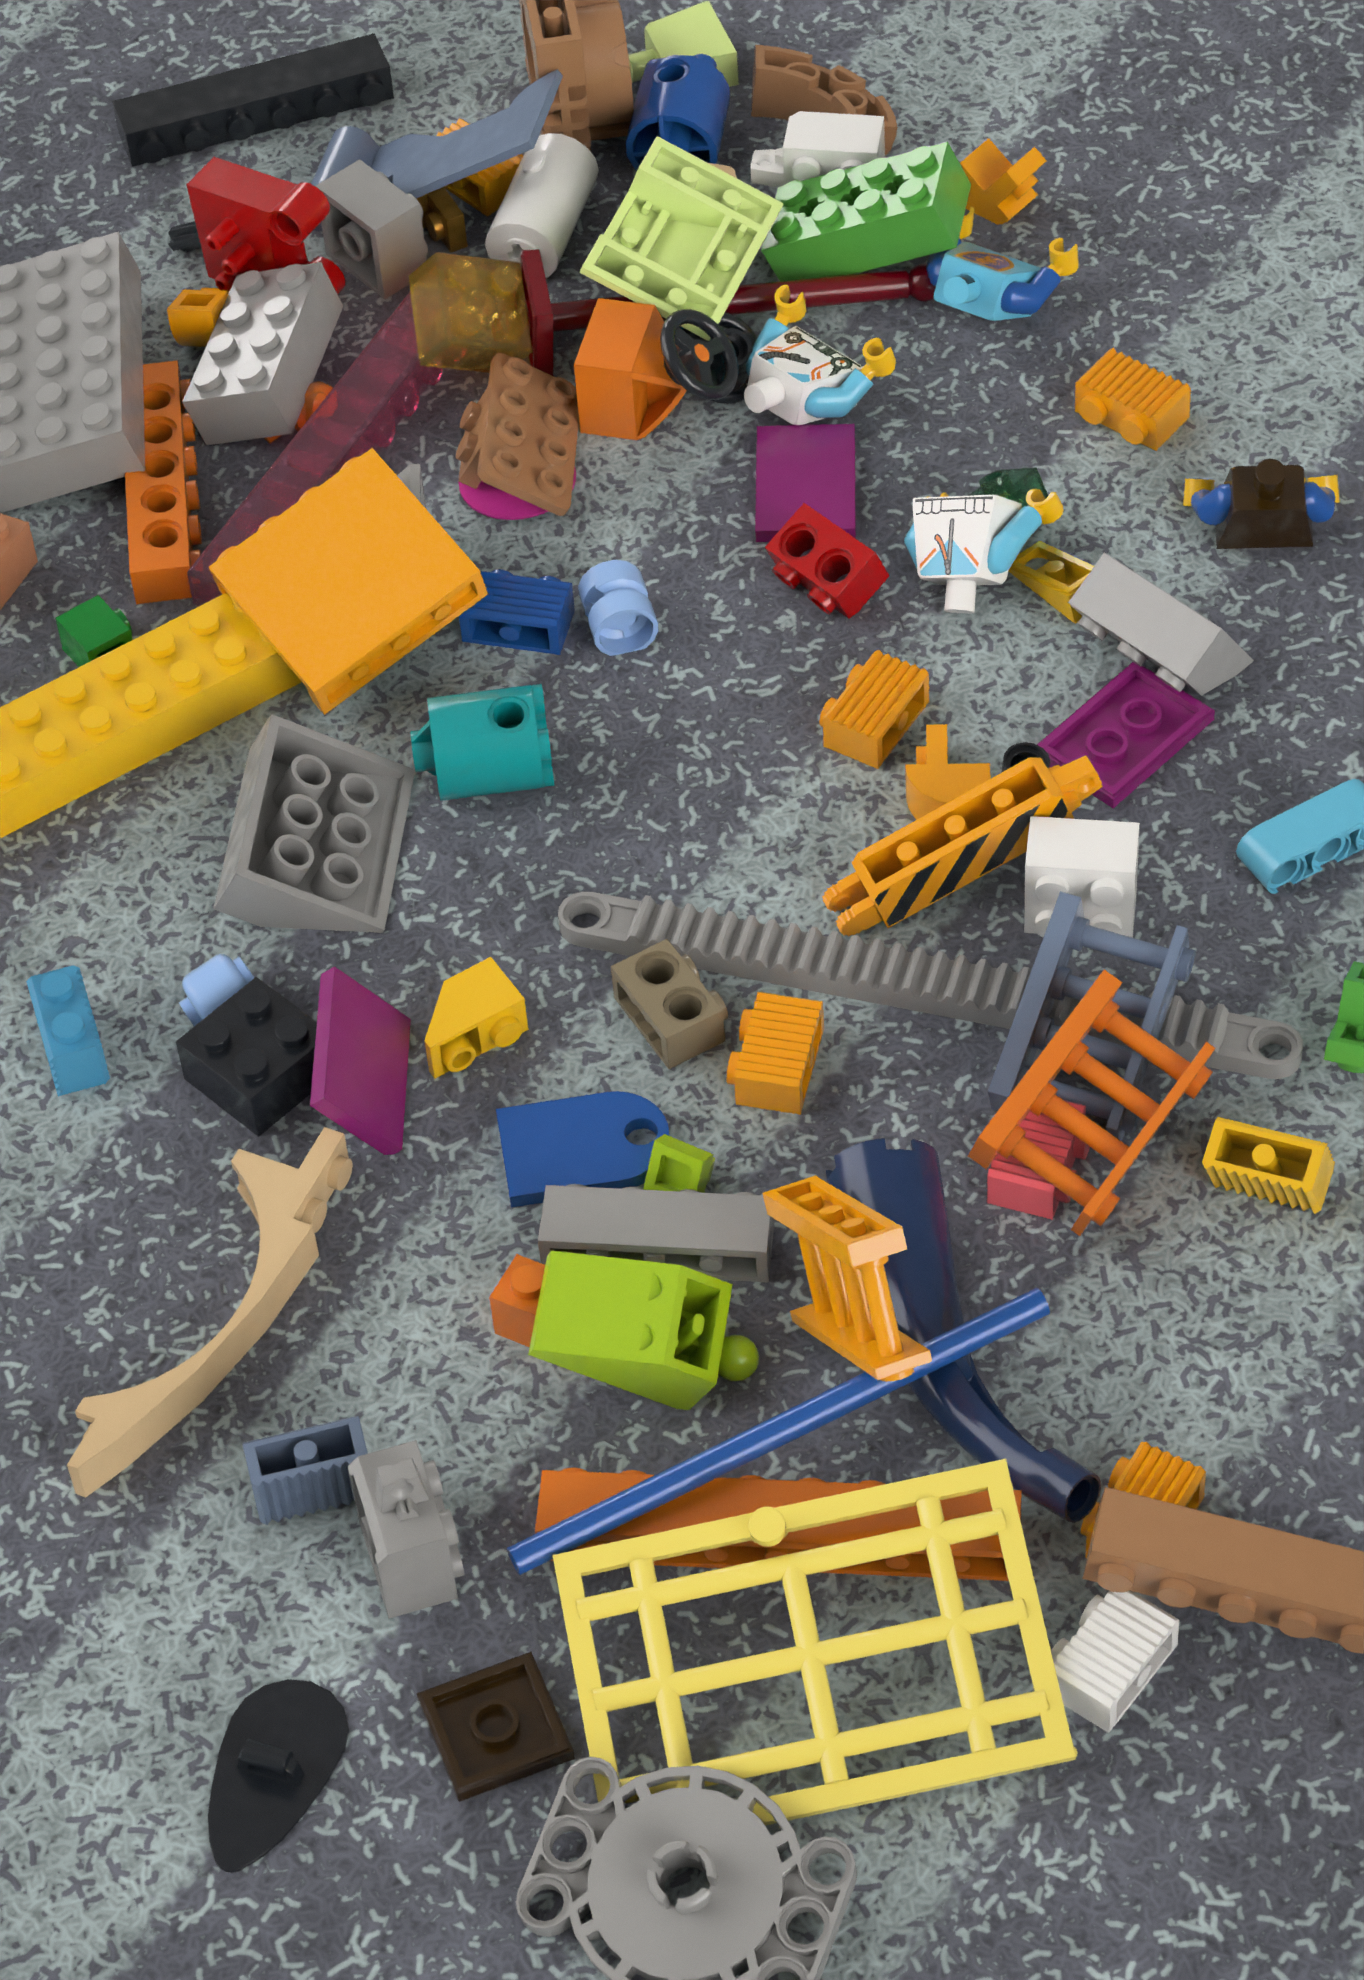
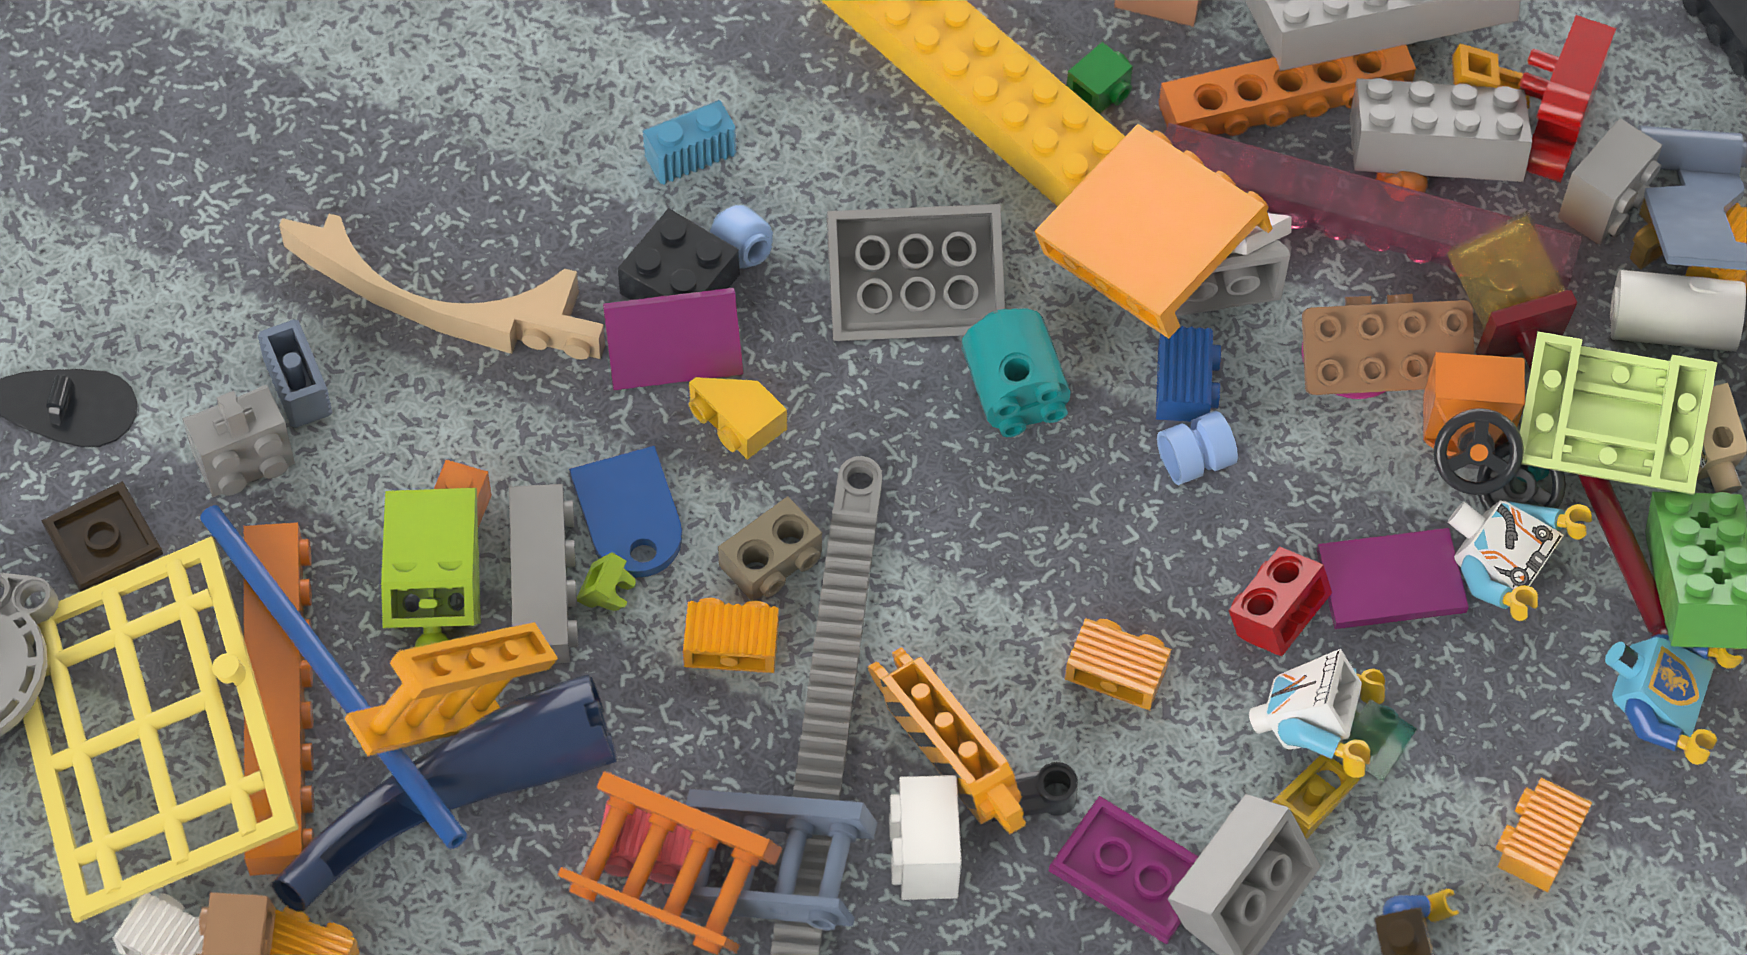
camera: 75 degrees right, 10 degrees up
(933, 780) = (1030, 723): light orange brick -> none

